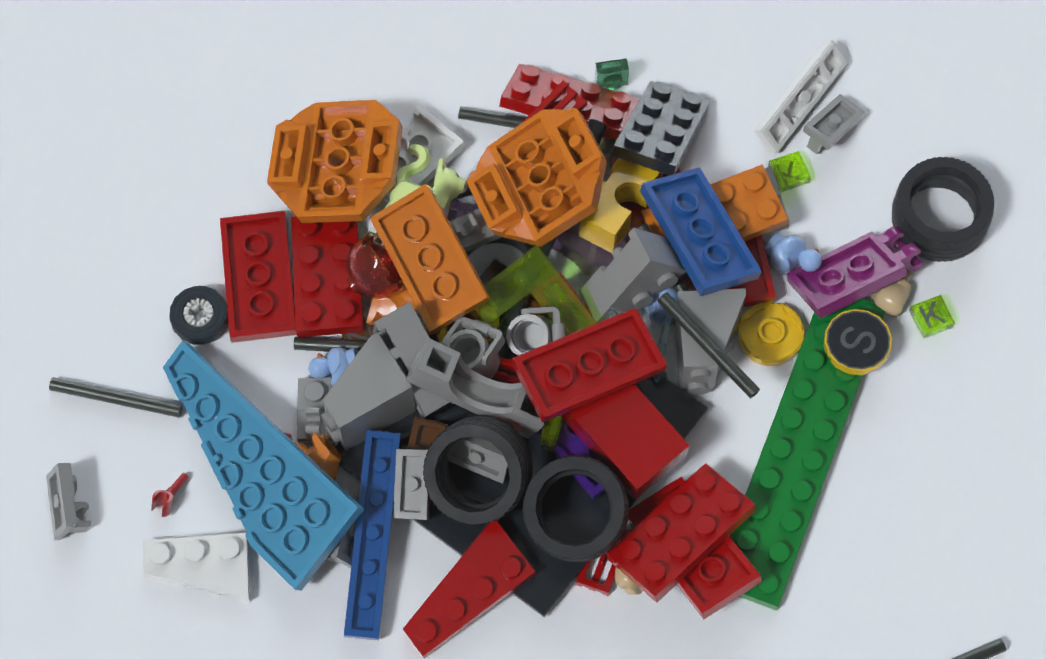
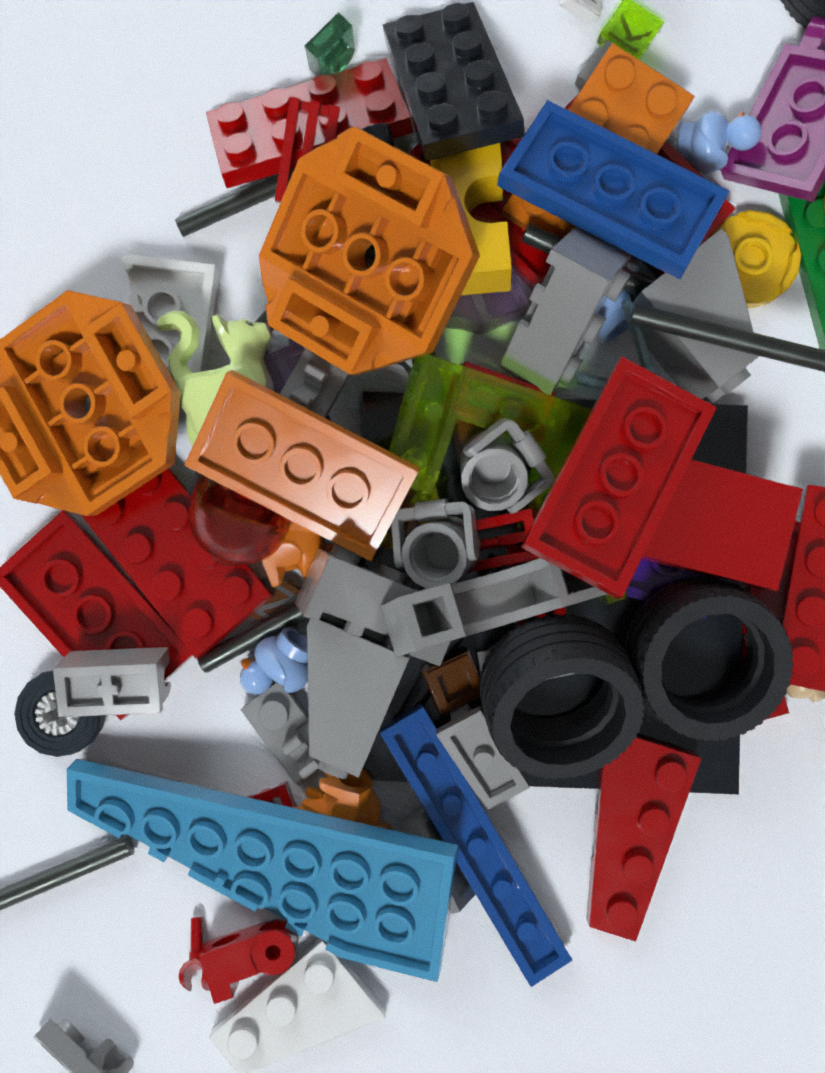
camera: 30 degrees left, 20 degrees up
(199, 509) = (245, 953): none -> red leg
(243, 308) = (111, 682): none -> light grey hinge

